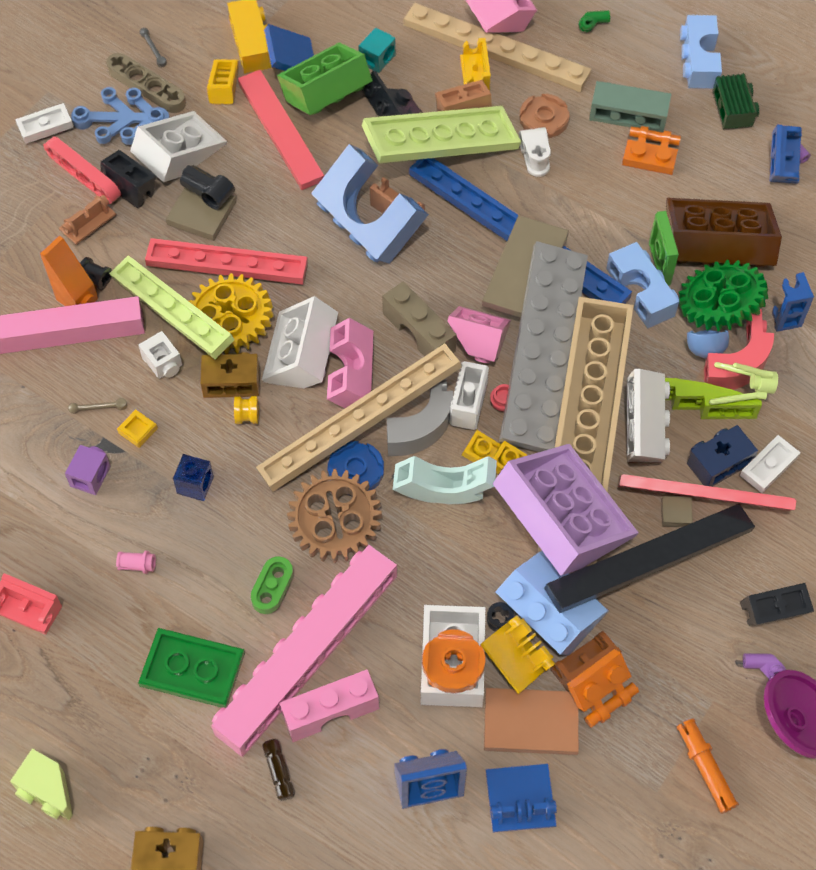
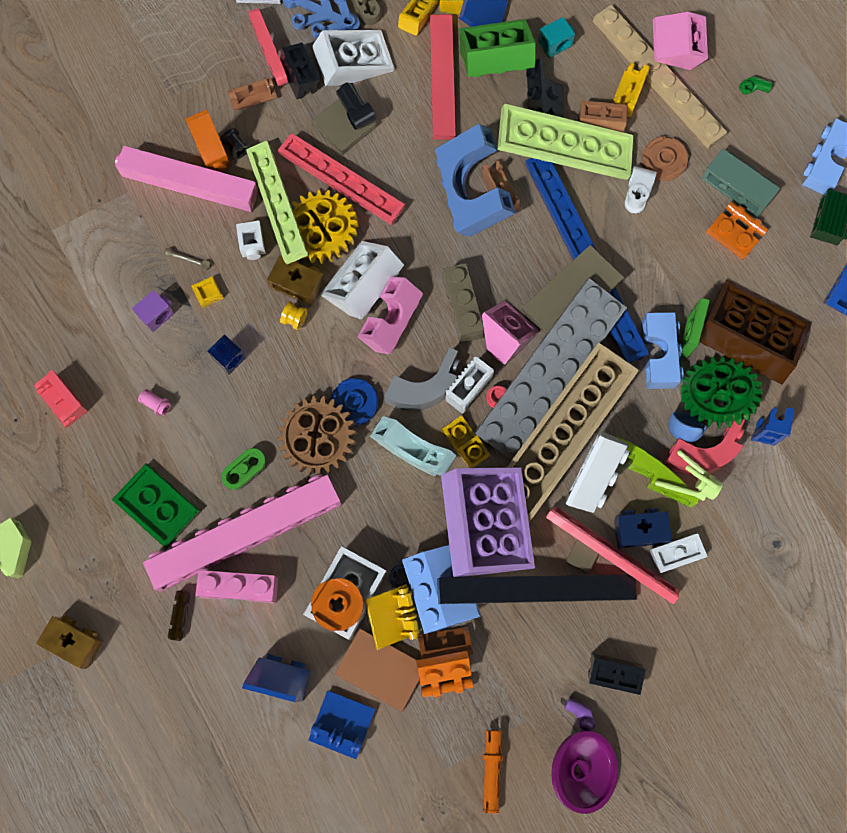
camera: 25 degrees right, 15 degrees up
(358, 417) = (374, 364): tan plate -> none

